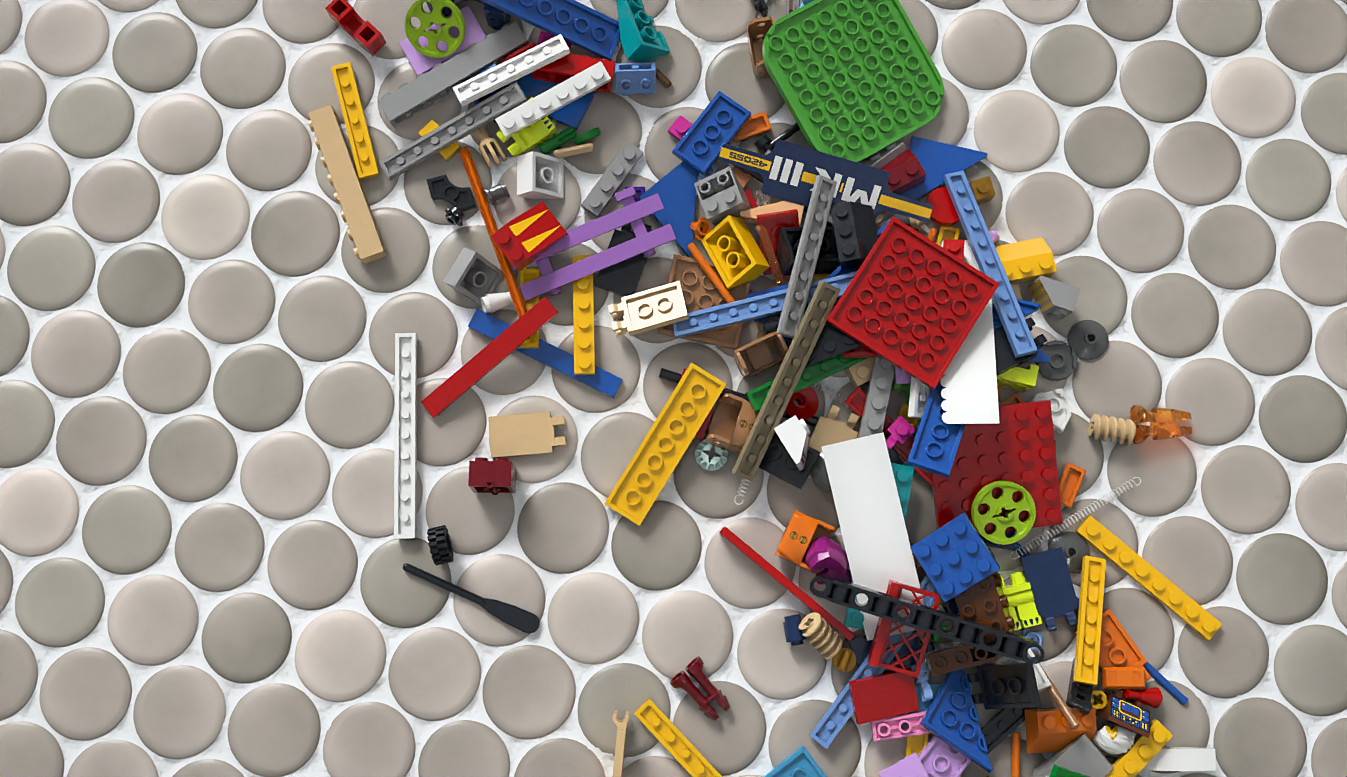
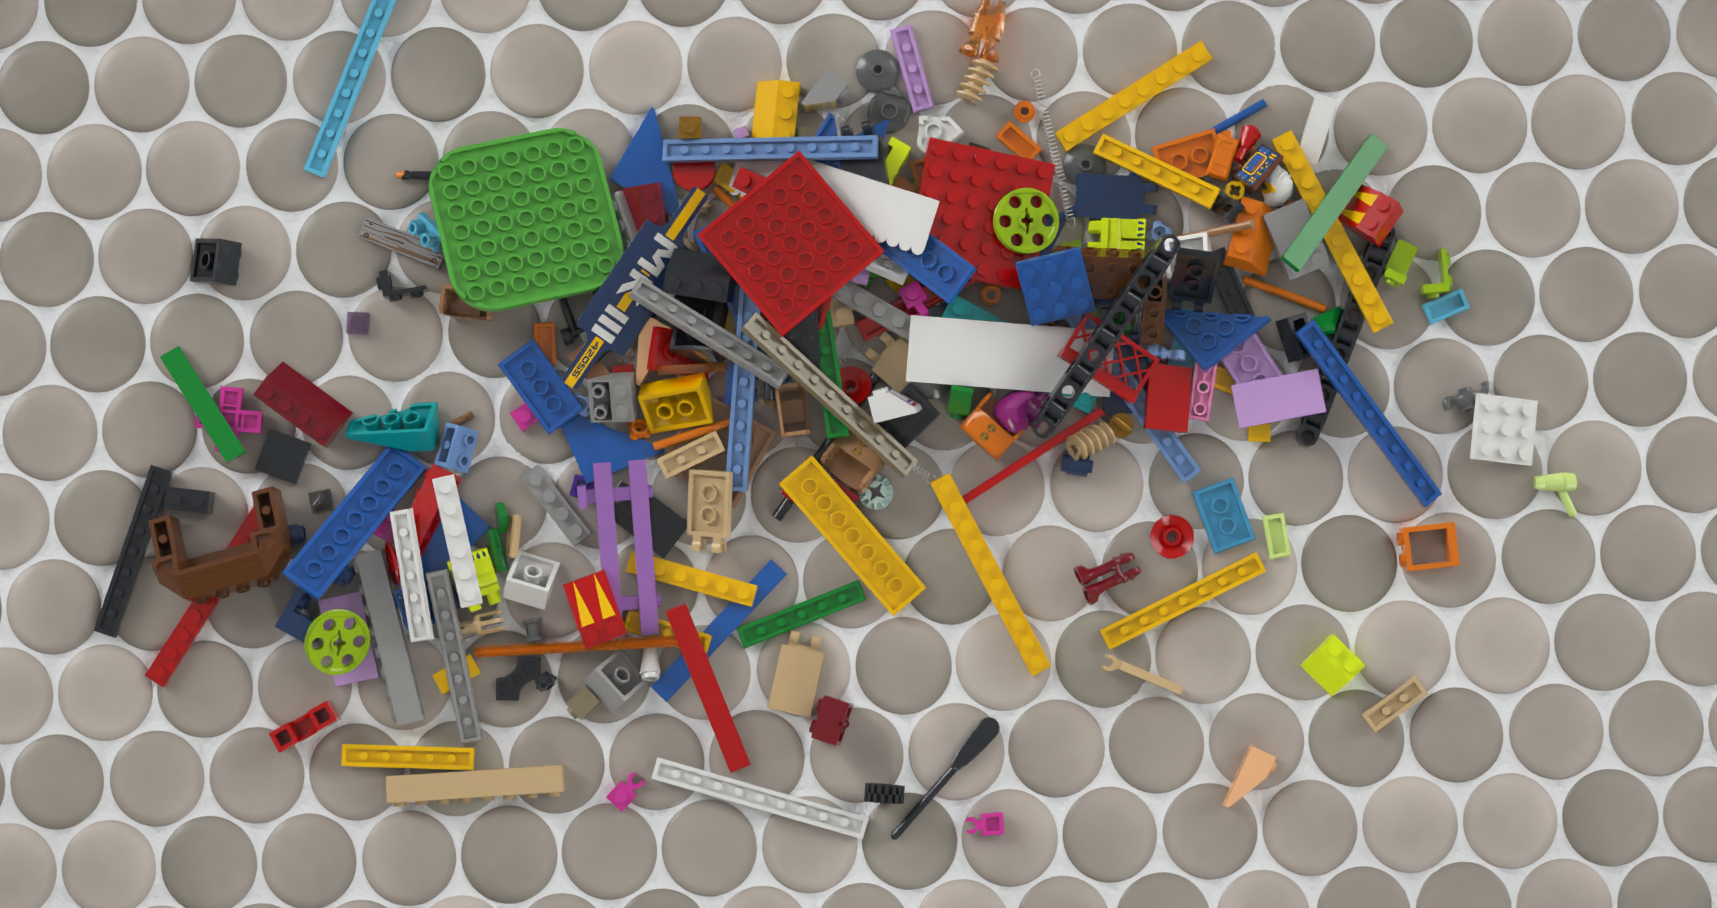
camera: 70 degrees left, 5 degrees up
(375, 314) = (623, 793): none -> dark pink plate
(441, 651) = (990, 824): none -> dark pink plate
(444, 253) = (582, 703): none -> dark tan brick
(582, 421) = (801, 614): none -> green tile
(669, 580) = (990, 574): none -> yellow plate
(692, 278) = (690, 454): none -> tan plate
(756, 751) = (1183, 536): none -> red dish
(817, 503) = (959, 402): none -> green slope
(929, 502) = (990, 302): none -> orange plate
(1092, 481) = (1024, 118): none -> orange plate
(1101, 369) = (912, 69): none -> lavender tile

